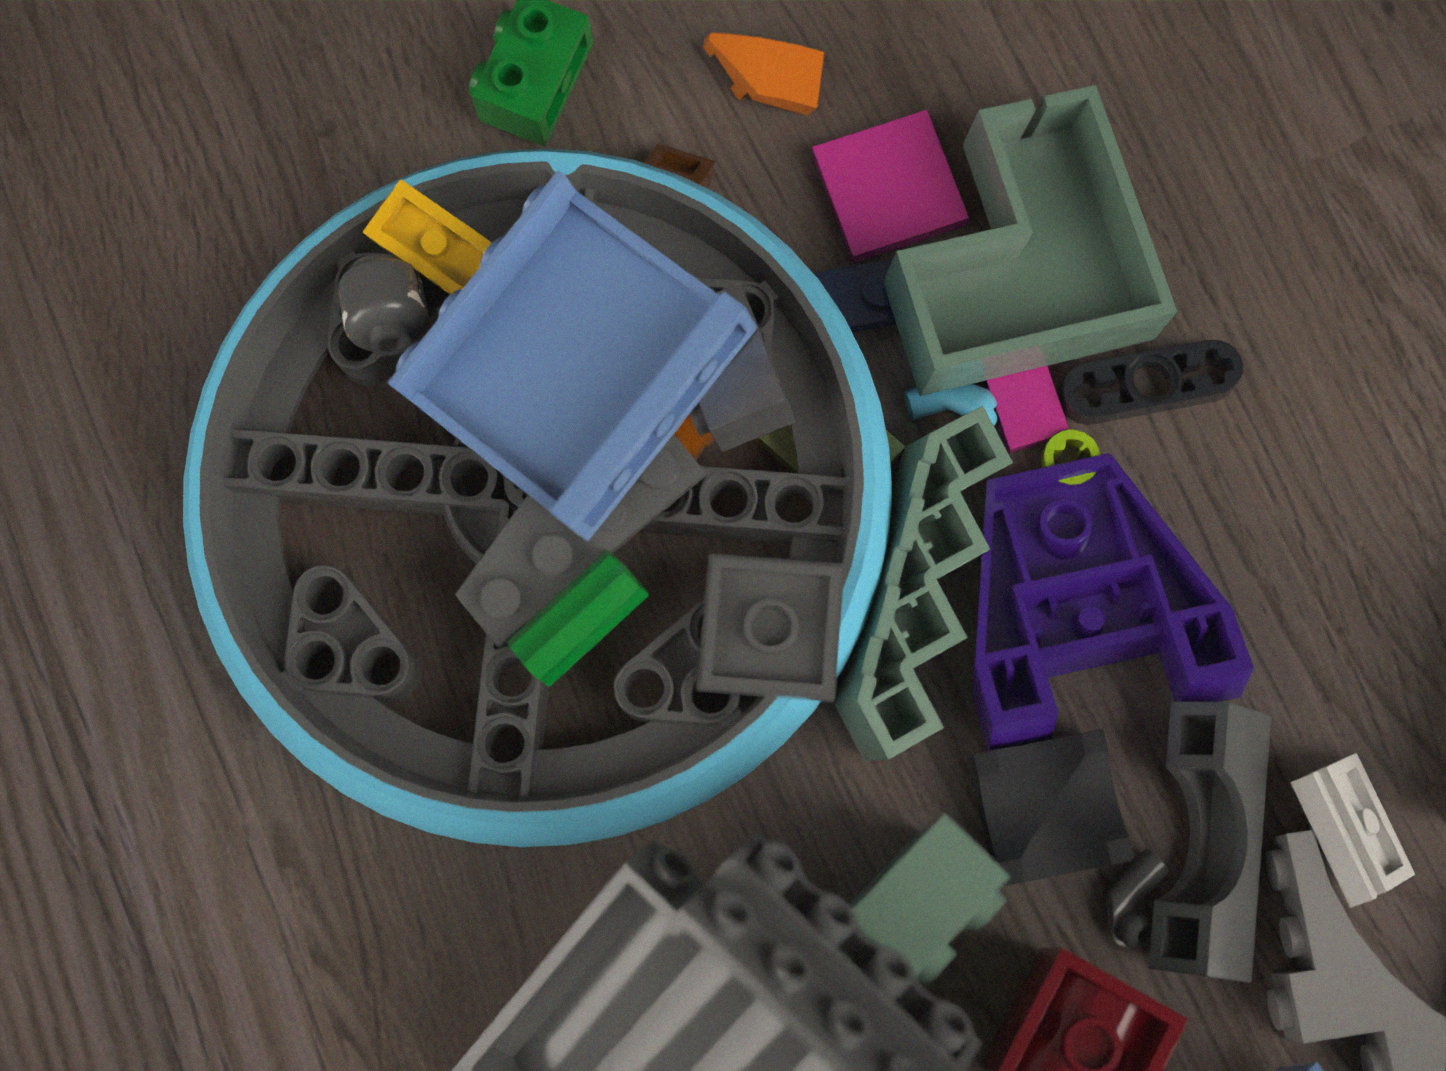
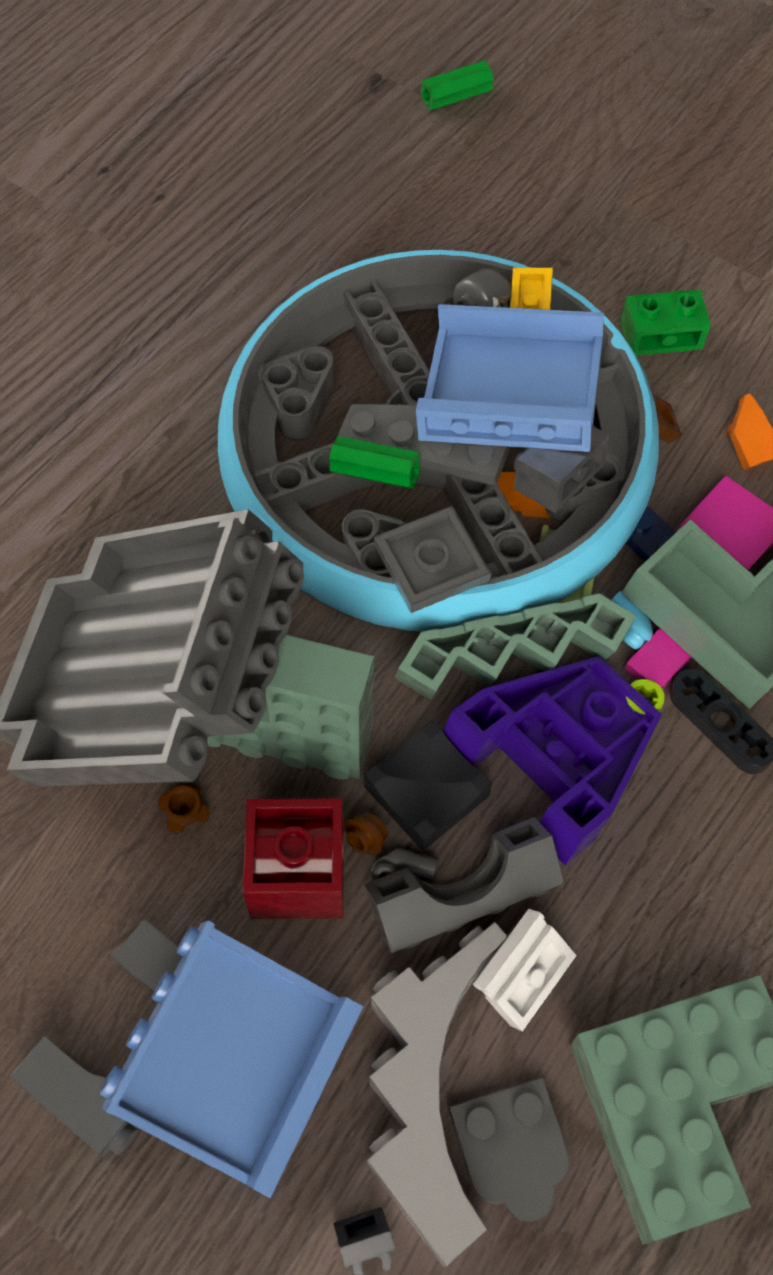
camera: 55 degrees right, 15 degrees down
(1069, 924) = (365, 833): none -> reddish brown plate

